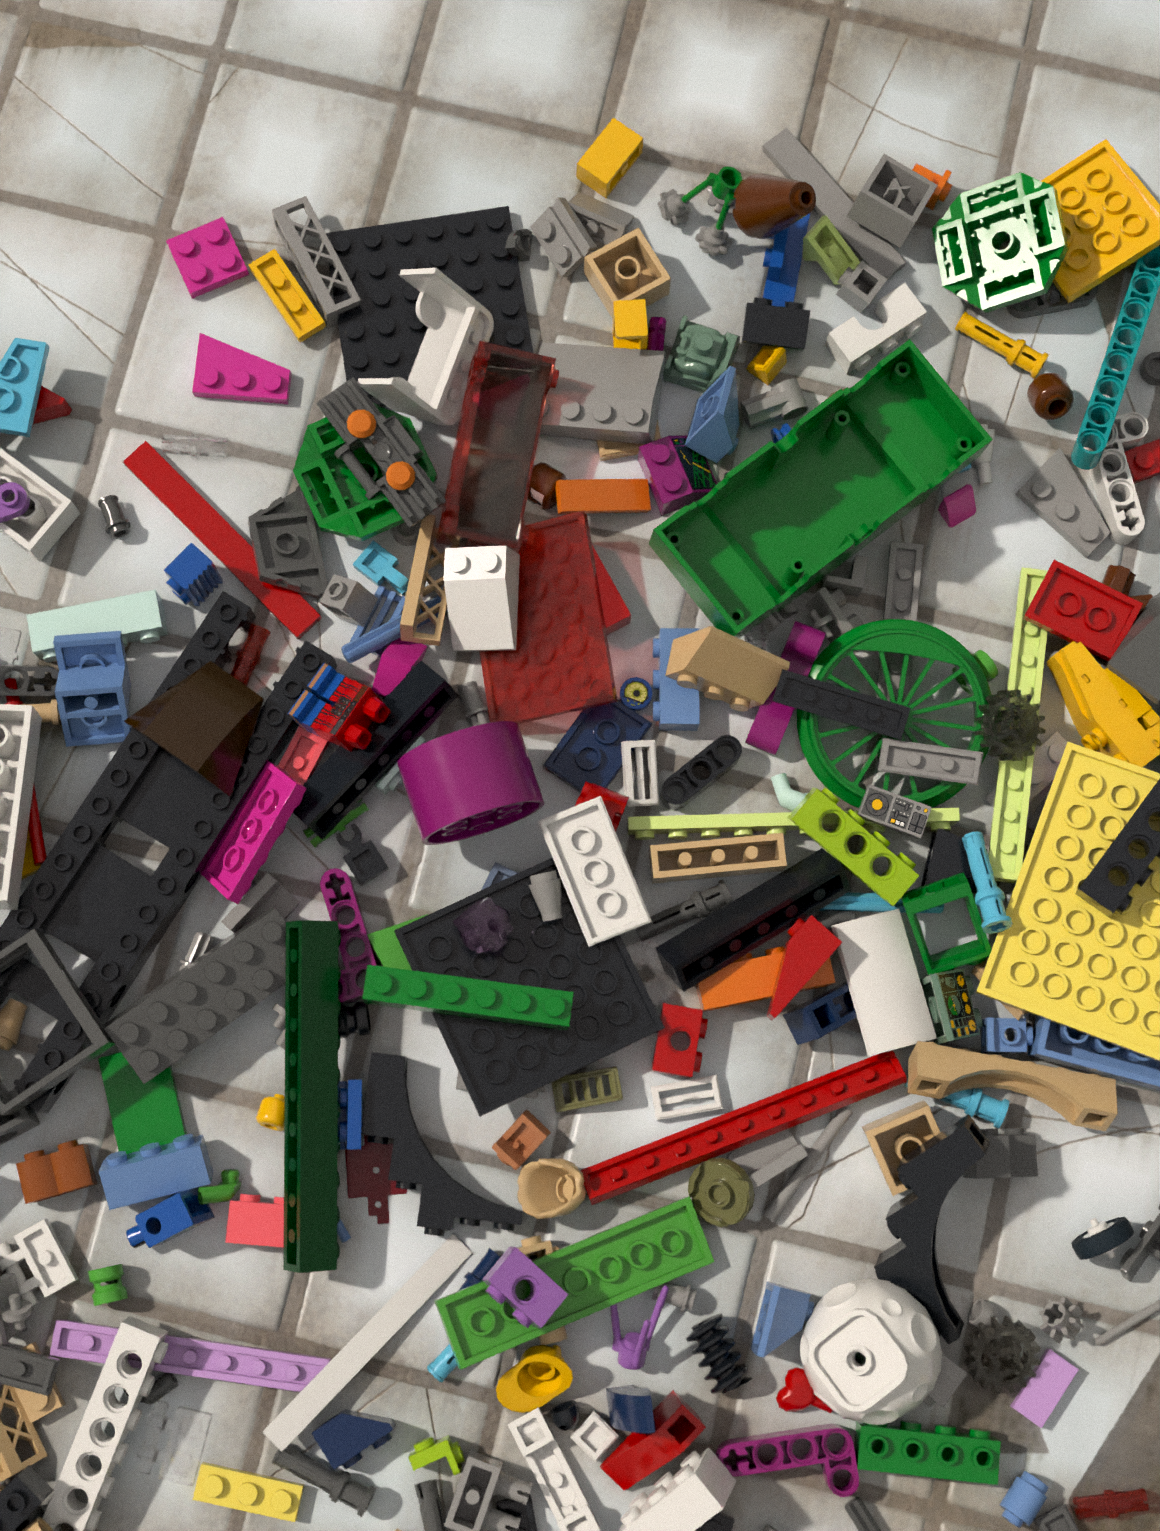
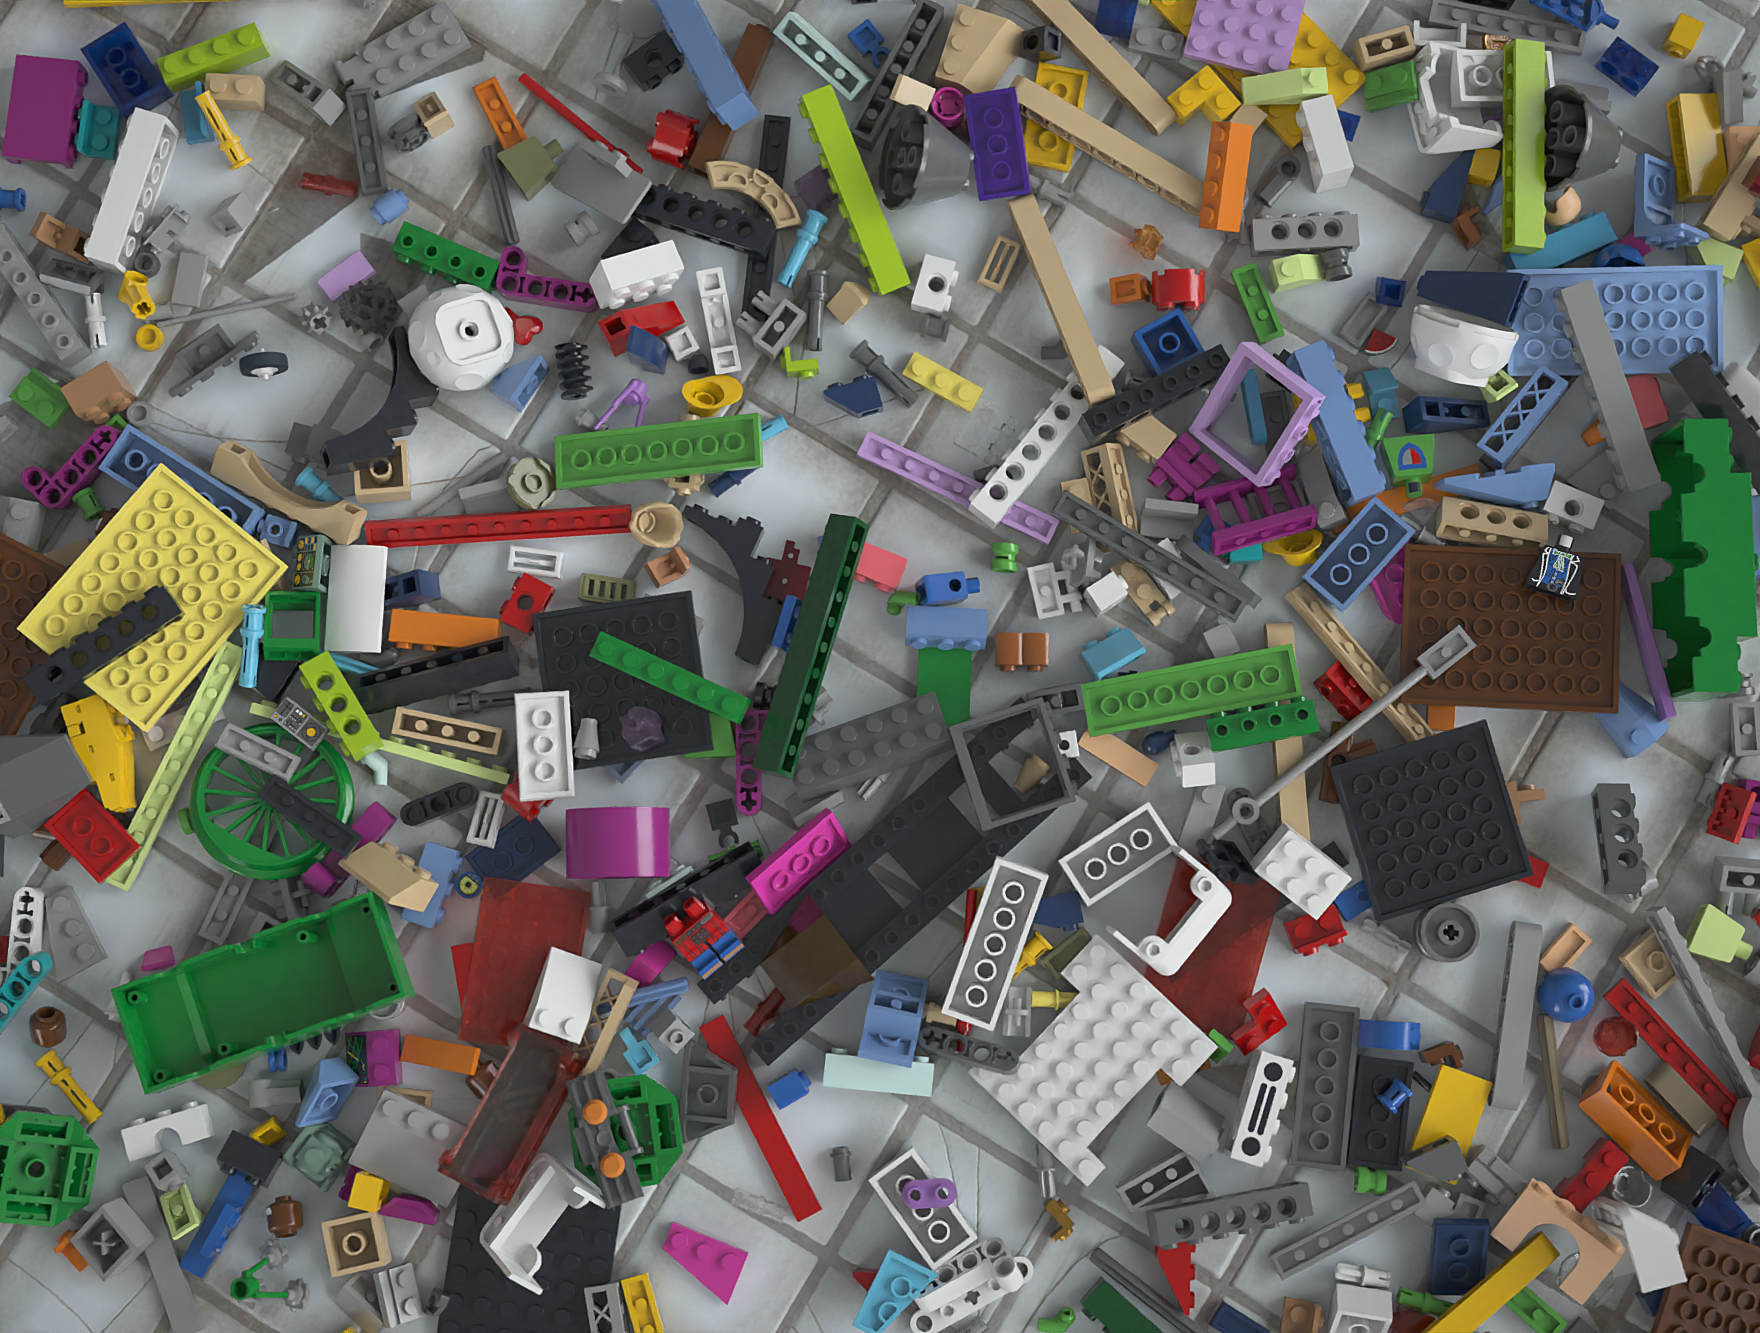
camera: 160 degrees left, 5 degrees up
(272, 1112) = (846, 645): yellow piece -> none
(366, 1343) = (825, 458): white sticker -> none
(544, 1293) = (683, 443): medium lavender brick -> none
(581, 328) = (411, 1208): none -> magenta slope
(715, 279) = (284, 1217): none -> reddish brown head
(771, 204) = (213, 1253): reddish brown cone -> none
(802, 957) = (411, 631): red slope -> none
(1010, 725) = (185, 760): clear smoke gear -> none

